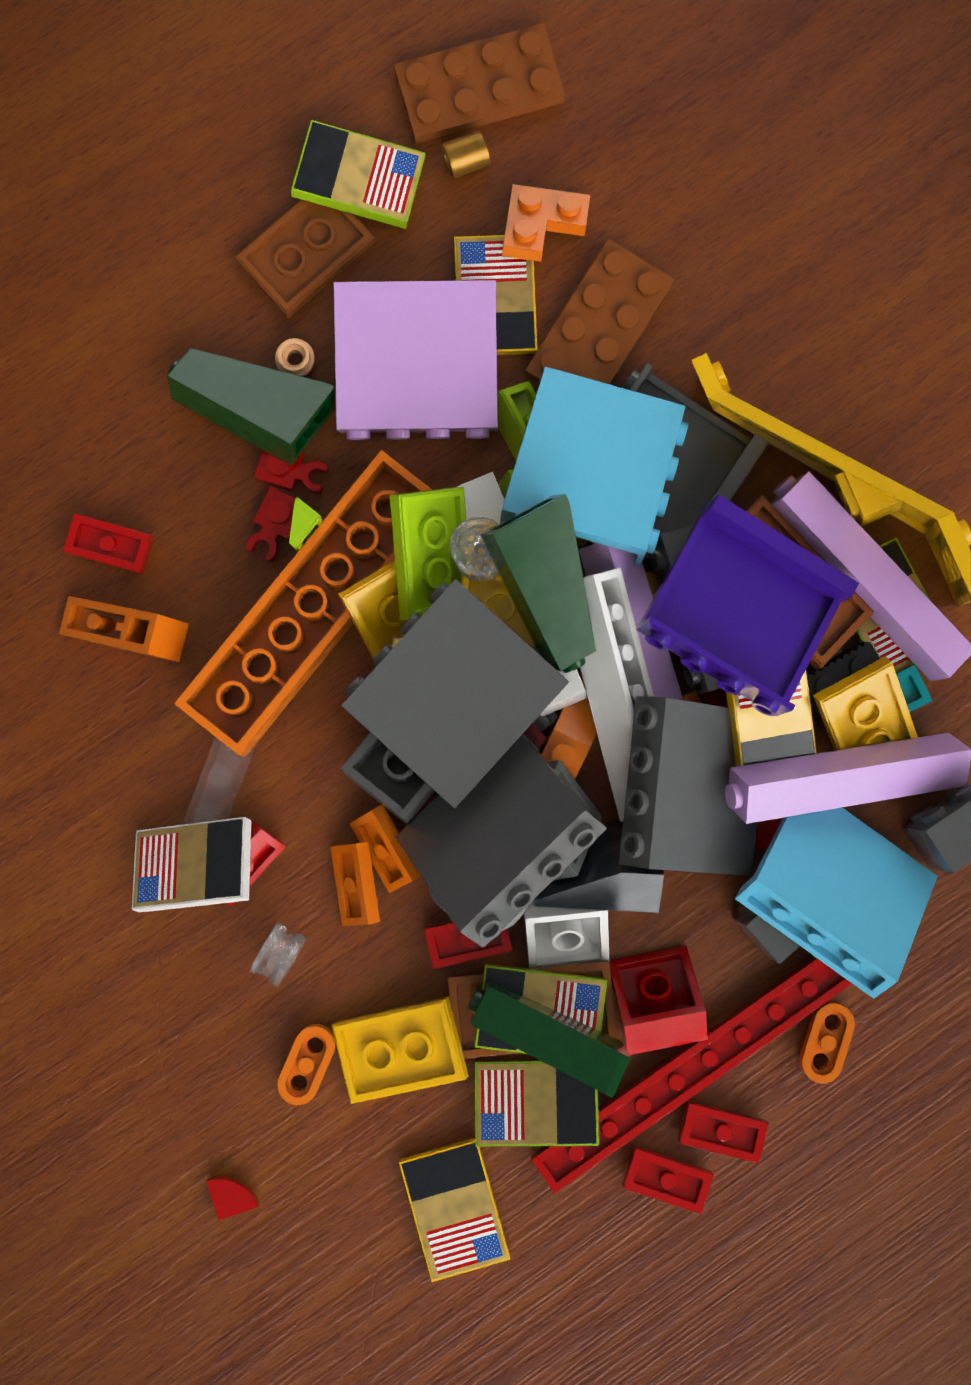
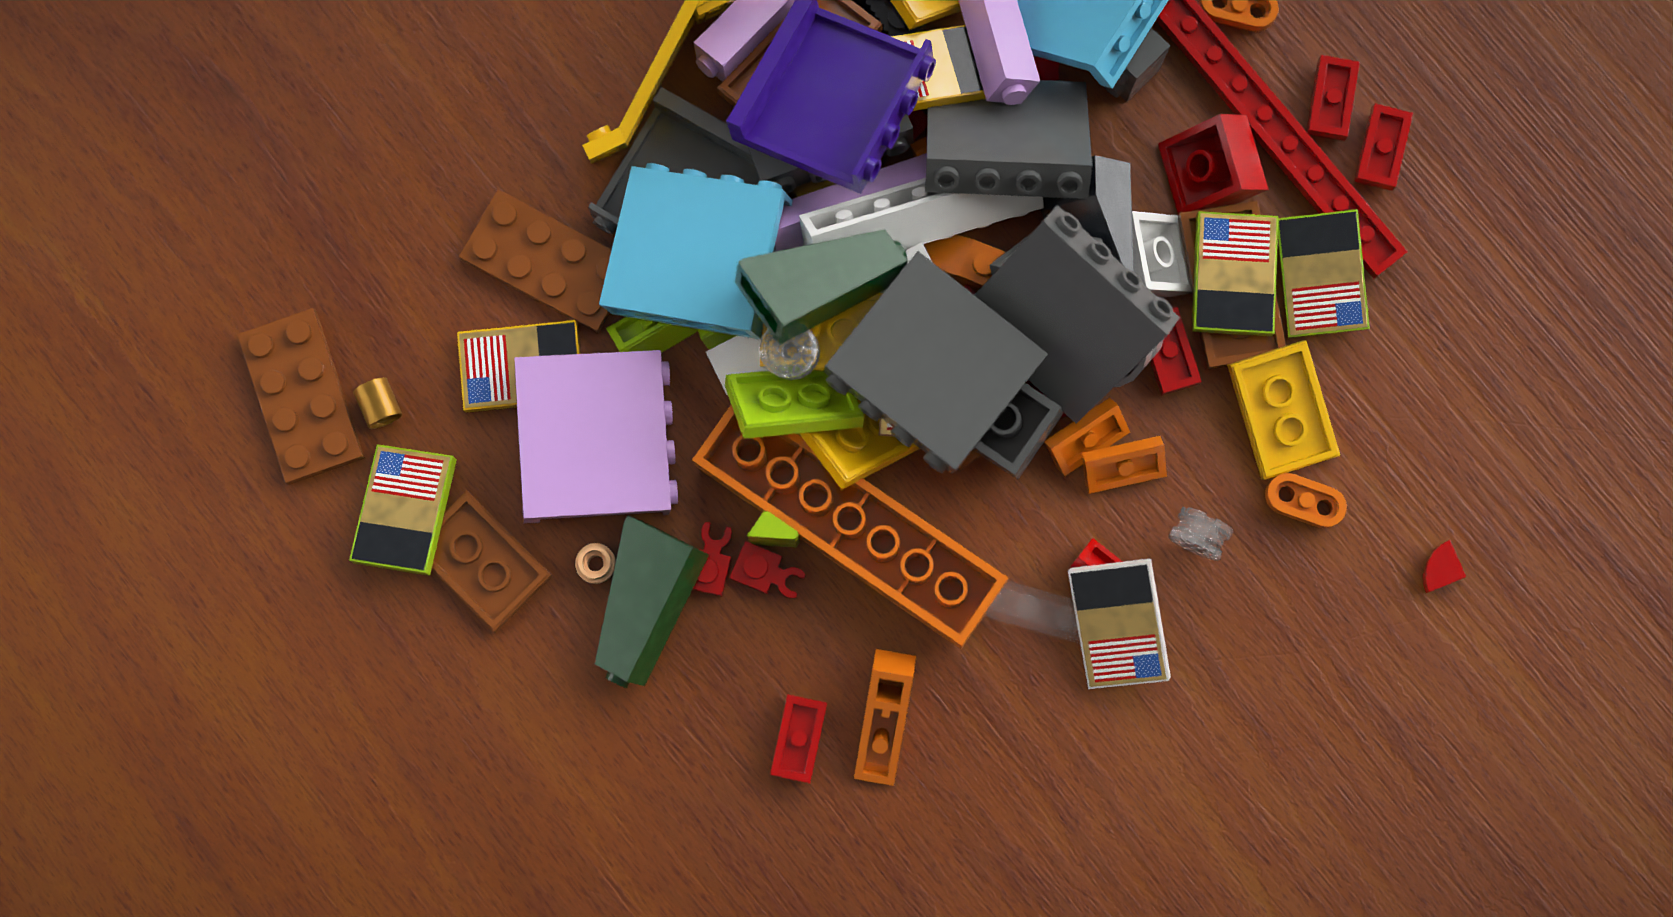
camera: 90 degrees left, 5 degrees down
(454, 1209) = (1432, 349): tile -> none
(541, 210) = (434, 328): orange plate -> none
(550, 1037) = (1258, 256): dark green slope -> none

